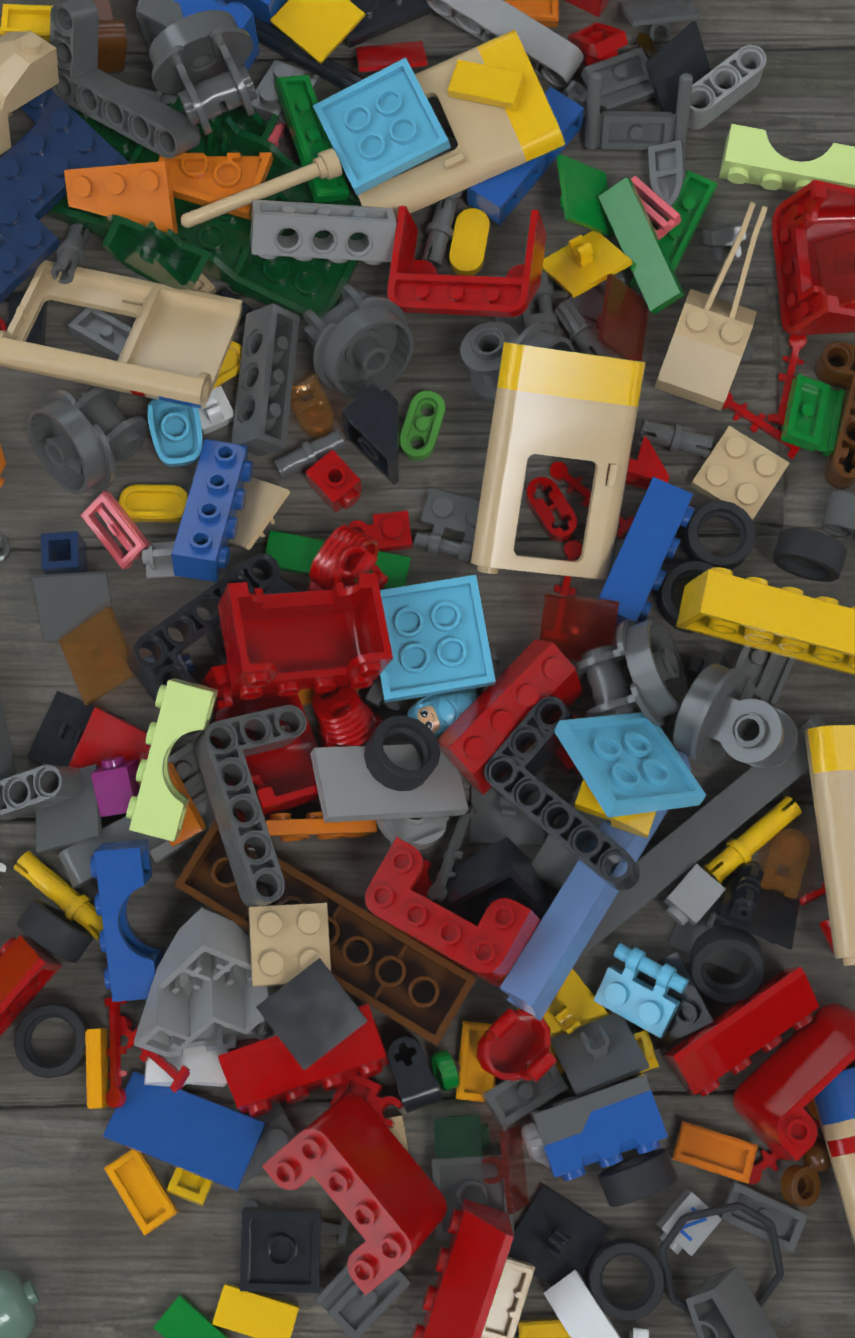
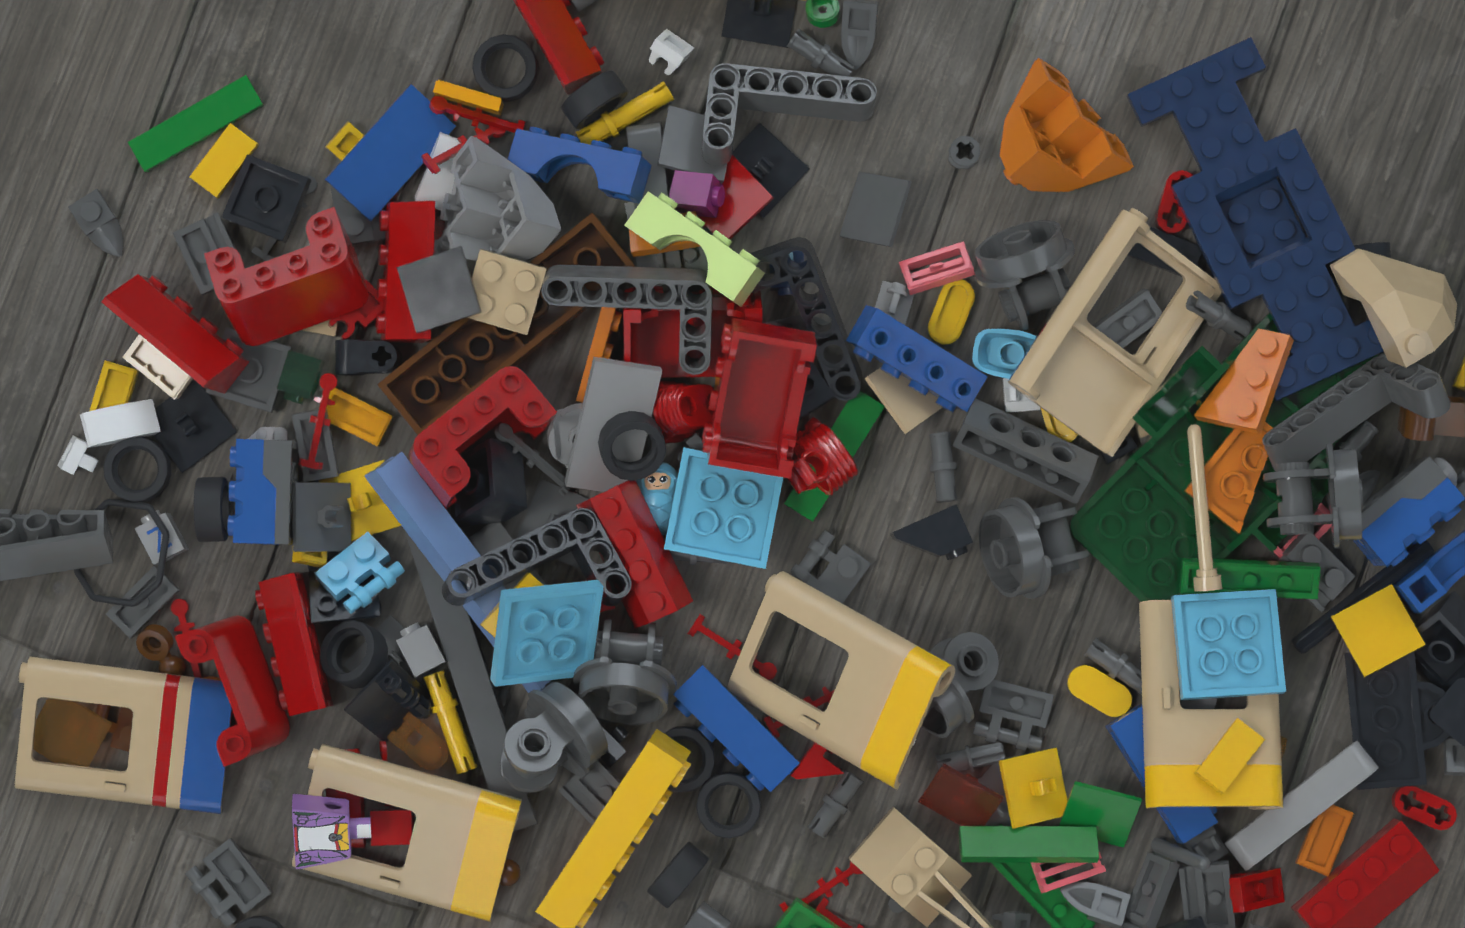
camera: 110 degrees right, 10 degrees up
(63, 553) = (925, 214): dark blue brick -> none
(97, 655) = (823, 213): clear orange piece -> none
(141, 1190) = (356, 100): light orange tile -> none
(308, 218) = (1145, 552): light grey brick -> none
(315, 415) = (978, 485): clear orange plate -> none
(334, 482) = (906, 479): red brick -> none
(381, 56) = (1312, 686): red piece -> none
(389, 529) = (845, 511): red plate -> none
(420, 289) = (1054, 620): red windscreen -> none
(422, 427) = (932, 578): bright green plate -> none
(445, 1070) = (357, 385): green tile -> none
(454, 1100) = (327, 382): none -> red piece
(511, 1169) = (257, 409): clear red piece -> none
(516, 1047) = (351, 449): red piece -> none
(557, 504) = (814, 673): red beam -> none
(578, 623) = (690, 642): clear red piece -> none
(715, 1152) = (208, 583): orange tile -> none
(739, 472) = (781, 849): tan plate -> none

